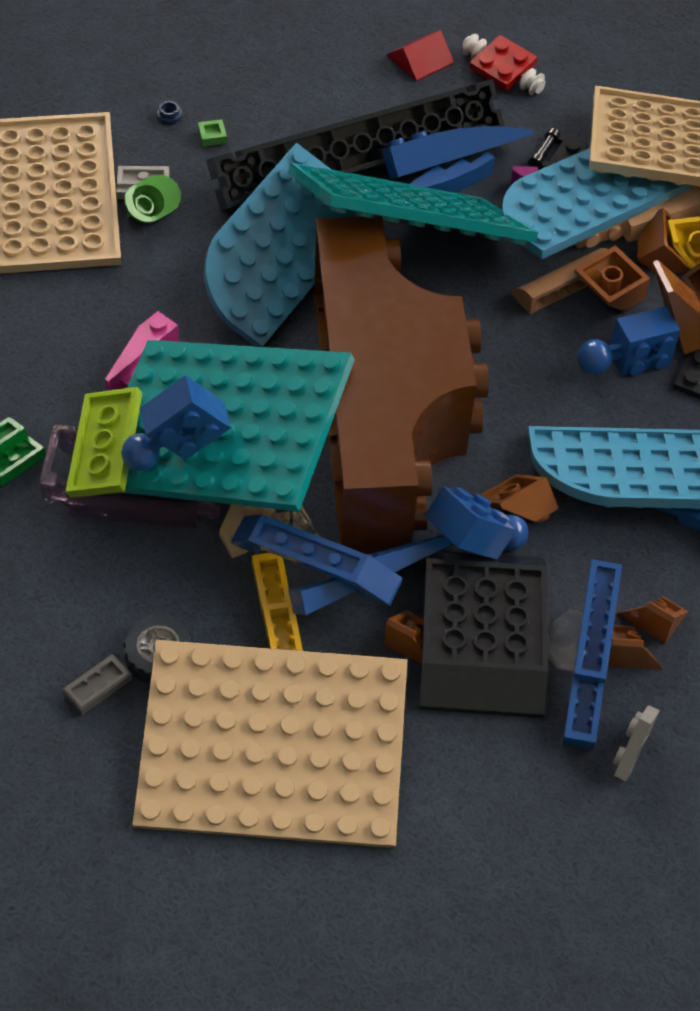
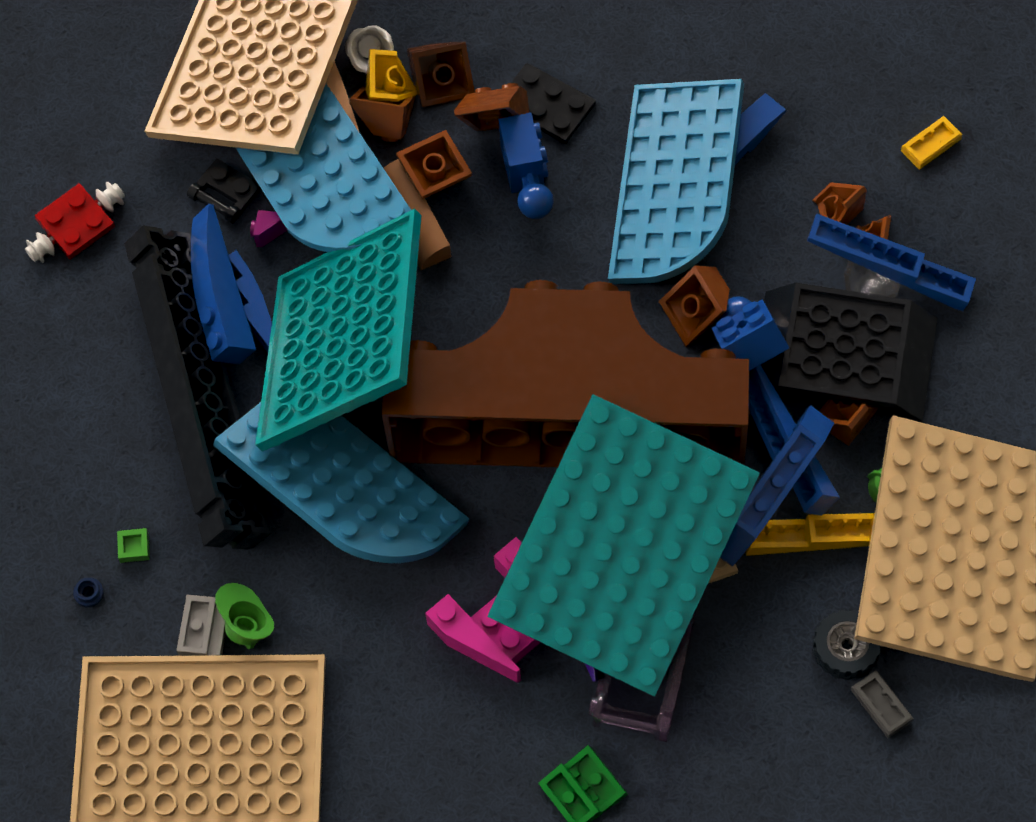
camera: 75 degrees left, 10 degrees up
(102, 430) = (624, 665): lime plate -> none
(179, 419) = (653, 579): blue brick -> none
(423, 56) = (37, 306): red slope -> none
(638, 732) = (978, 238): light grey plate -> none

